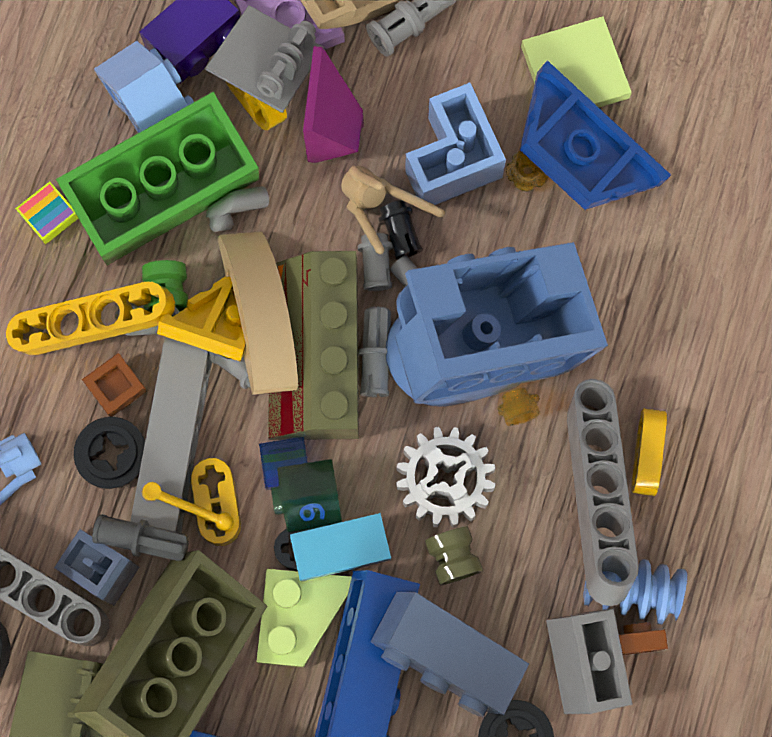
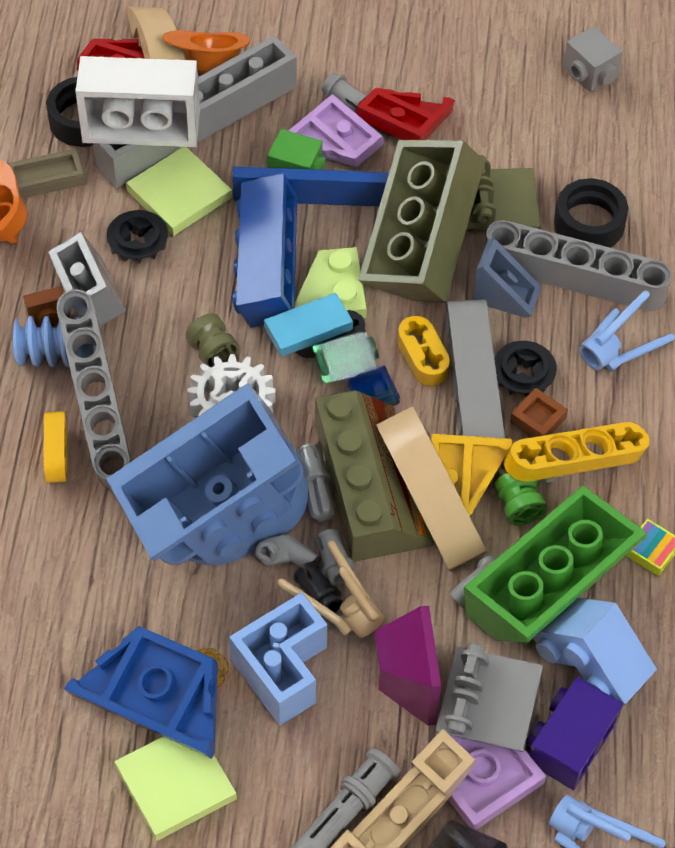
camera: 165 degrees right, 20 degrees down
(140, 538) = (474, 290): dark grey axle -> none
(152, 491) = (474, 322): yellow hinge -> none
(448, 654) = (202, 260): sand blue brick -> none

